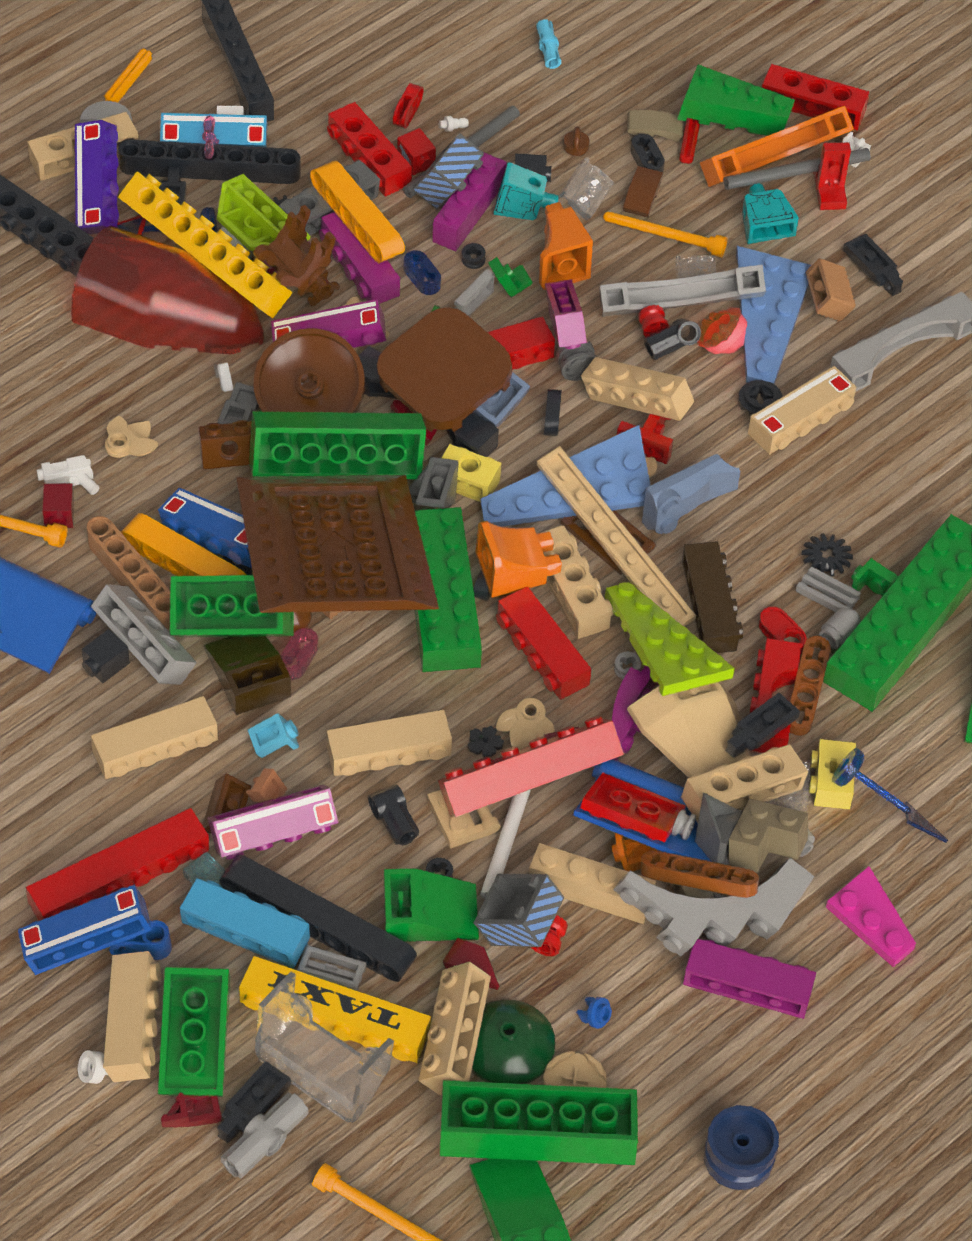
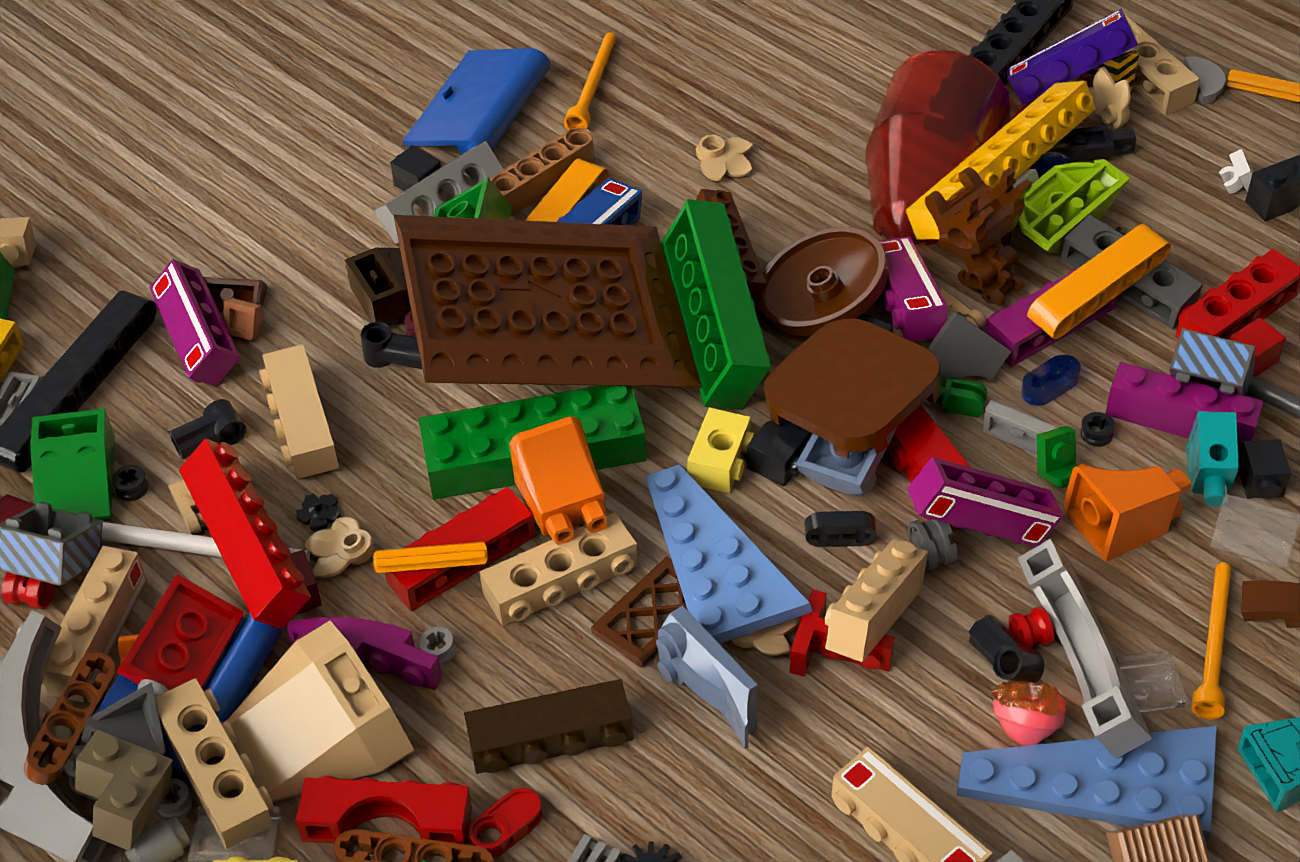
camera: 90 degrees right, 5 degrees down
(58, 504) = (613, 113): dark red brick -> none
(73, 470) = (667, 120): white piece -> none
(84, 929) = (62, 192): blue brick -> none
(124, 864) = (143, 212): red brick -> none
(128, 167) = (1111, 99): none -> tan plate
(141, 943) = (61, 246): blue piece -> none
(154, 738) = (305, 219): tan brick -> none
(203, 868) = (139, 282): clear light blue tile -> none
(209, 136) = (1179, 144): clear pink piece -> none
(223, 373) = (829, 216): tile -> none
(227, 162) = (1161, 168): black beam -> none
(229, 129) = (1202, 161): dark azure brick -> none
(240, 405) = (774, 235): dark grey slope -> none
(245, 922) = (64, 314): dark azure brick -> none
(273, 734) = (318, 320): medium azure bracket -> none
(322, 679) = (384, 347): none -> black piece
(399, 309) = (966, 350): none -> dark grey tile
(436, 484) = (676, 412): dark grey slope -> none
(568, 629) = (430, 557): none -> light orange axle
(612, 535) = (626, 603): tan tile -> none
(670, 651) = (422, 658): lime wing -> none
(750, 391) = (937, 761): black gear -> none
(762, 725) = (308, 779): black hinge -> none

